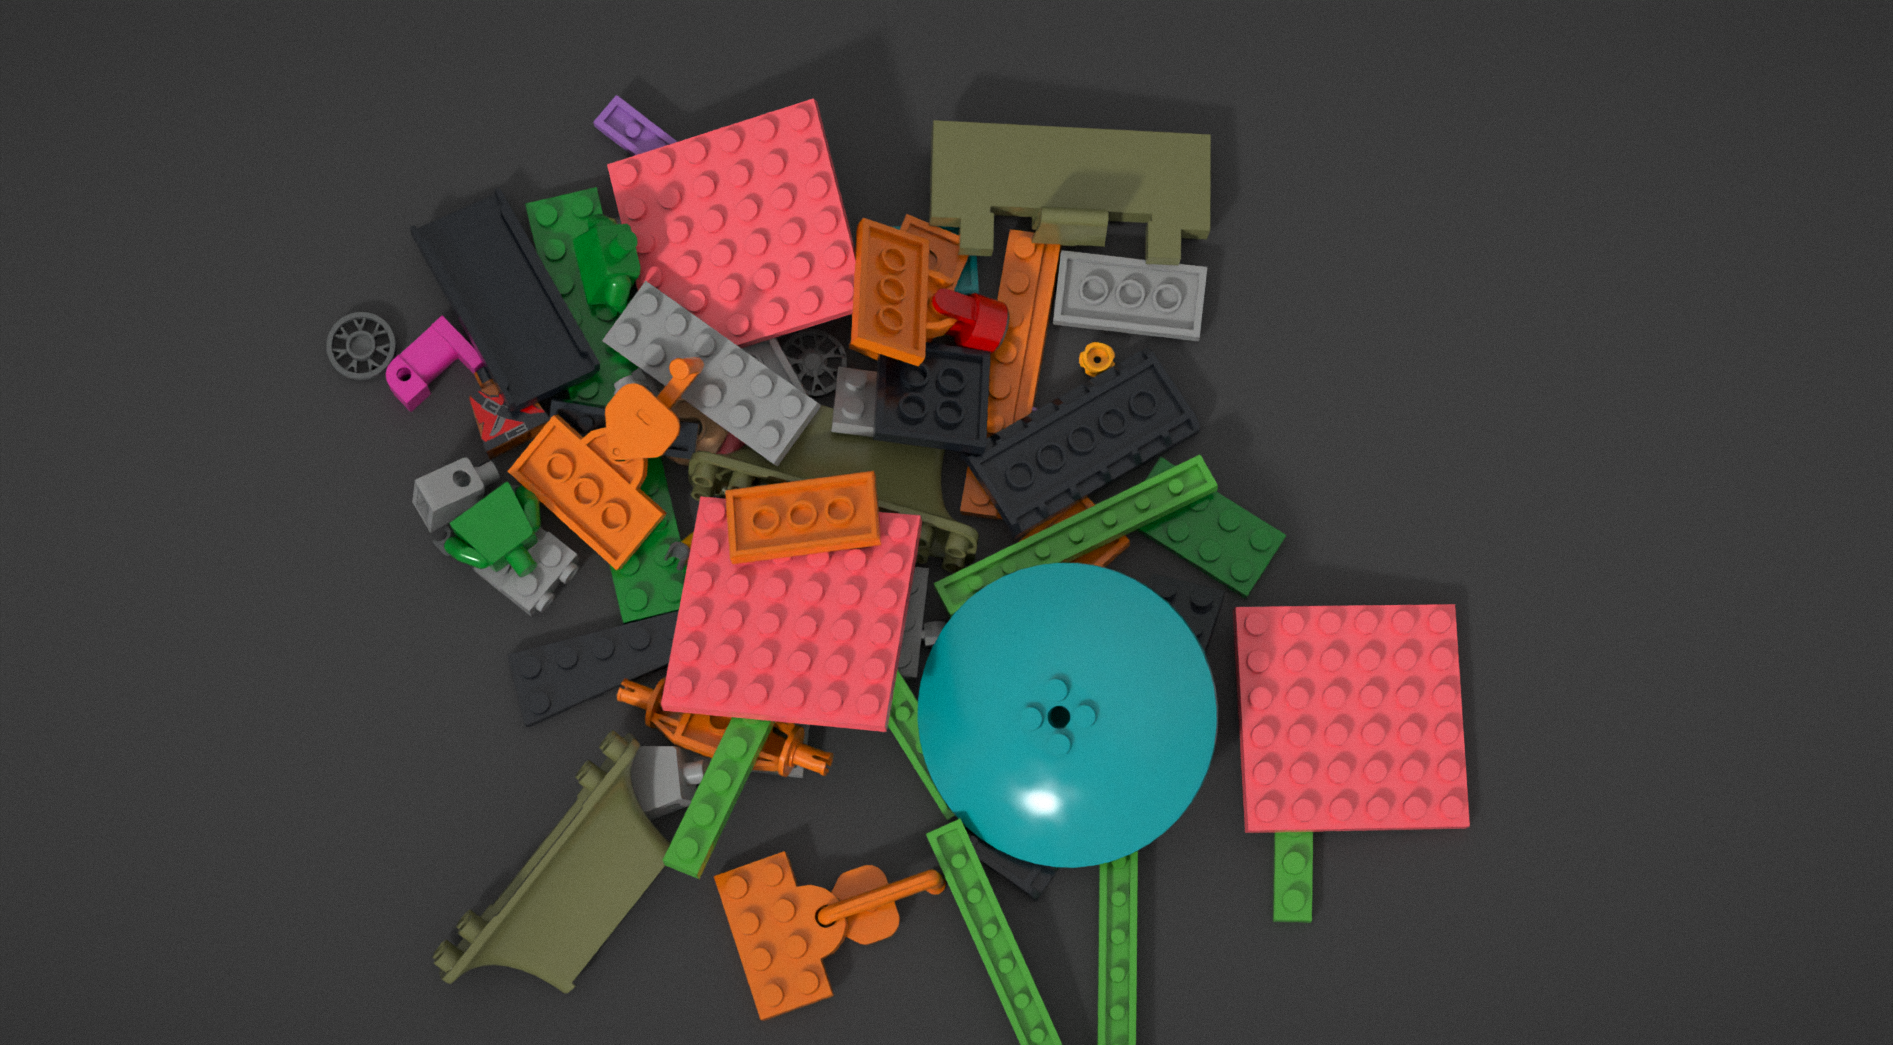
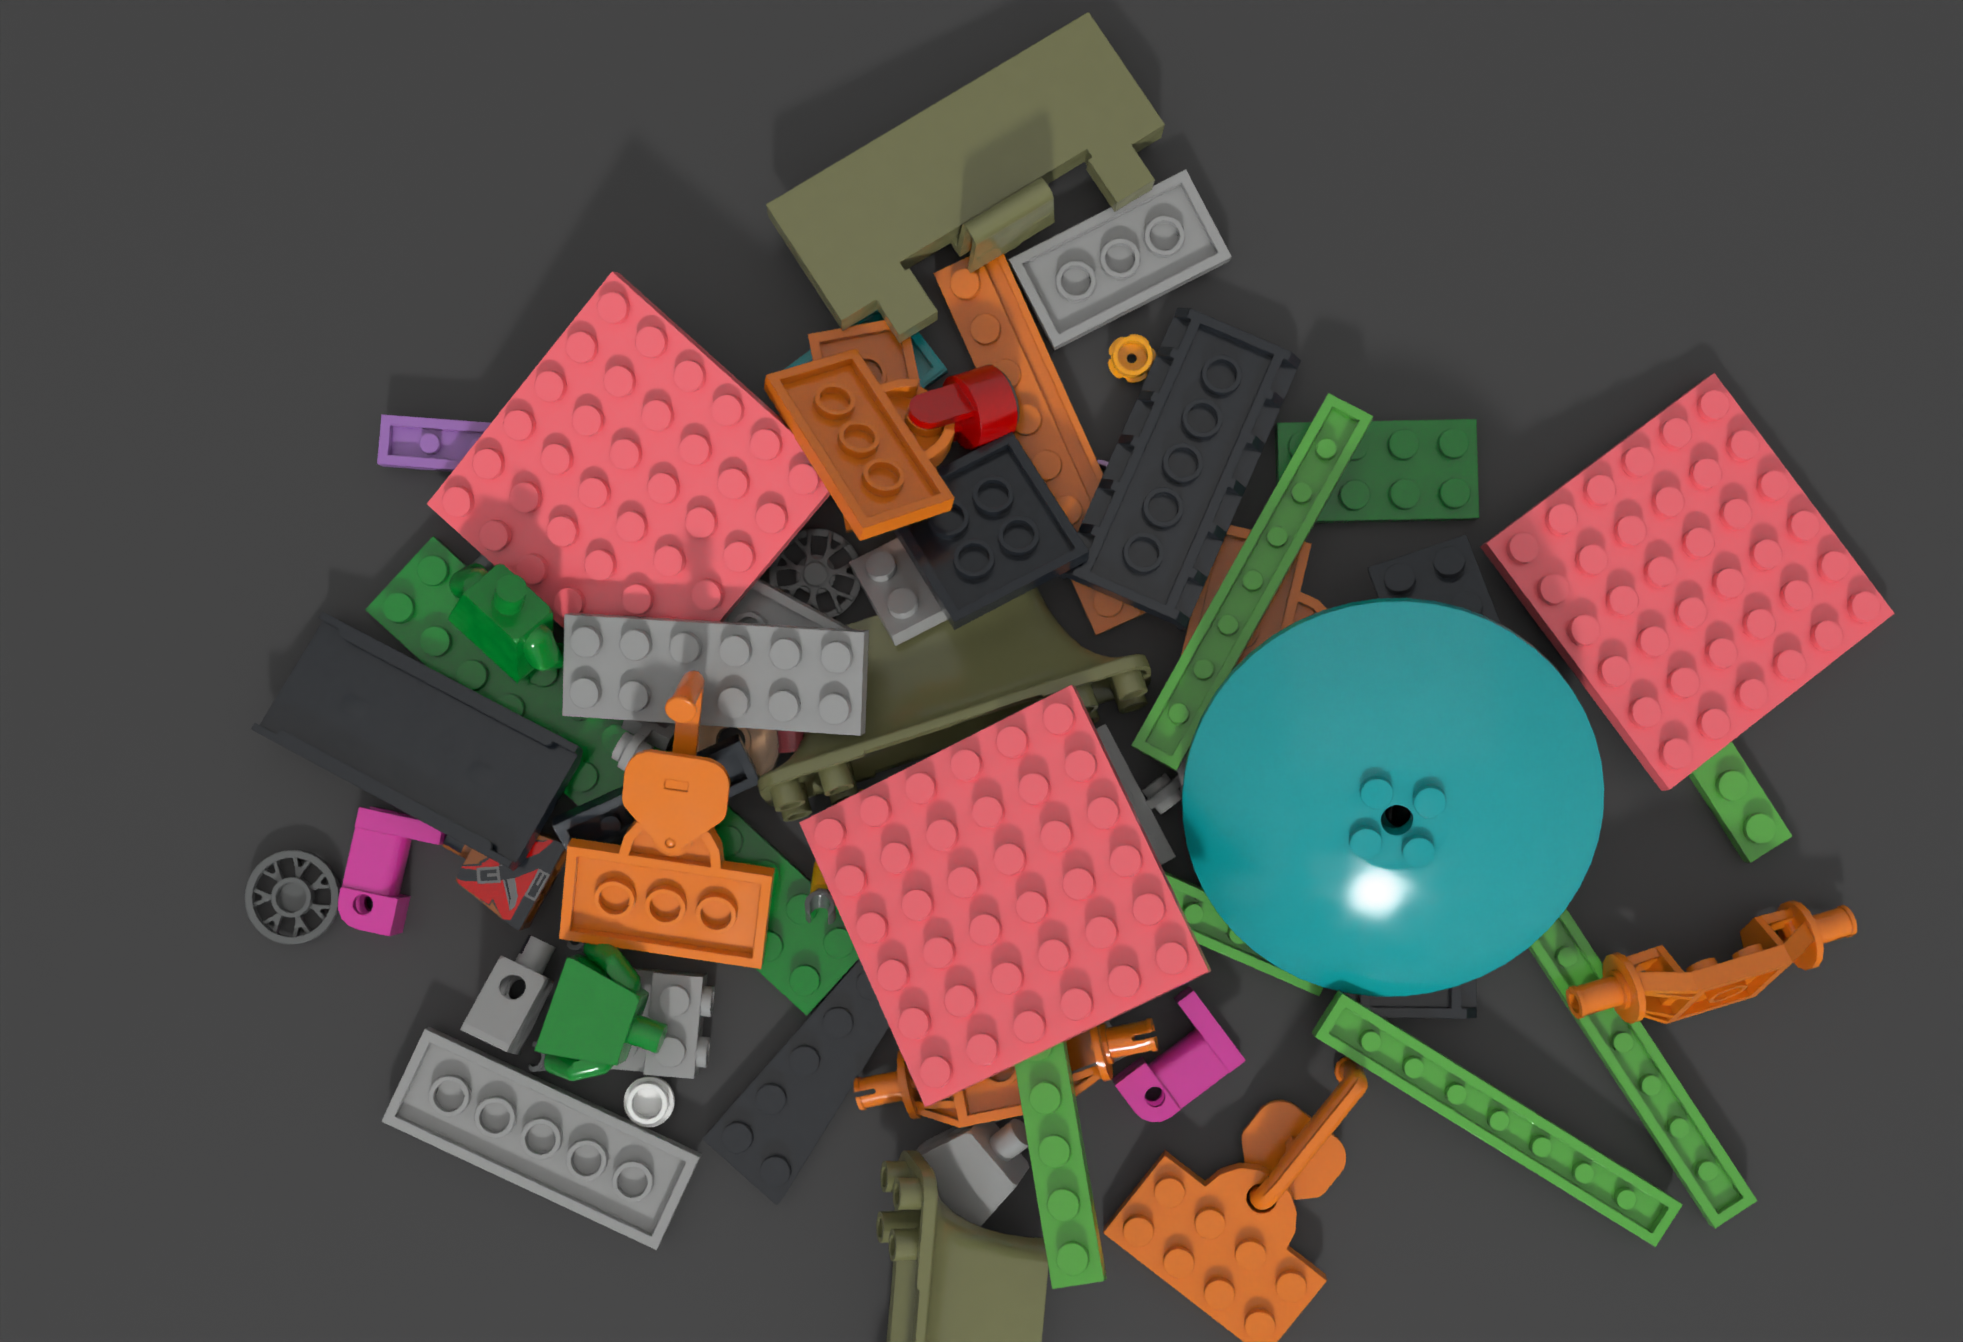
camera: 30 degrees left, 10 degrees up
(411, 589) = (541, 1137): none -> light grey plate
(490, 611) = (649, 1101): none -> white plate
(803, 517) = (938, 777): orange tile -> none
(832, 808) = (1184, 1068): none -> dark pink piece
(1201, 970) = (1670, 994): none -> orange plate

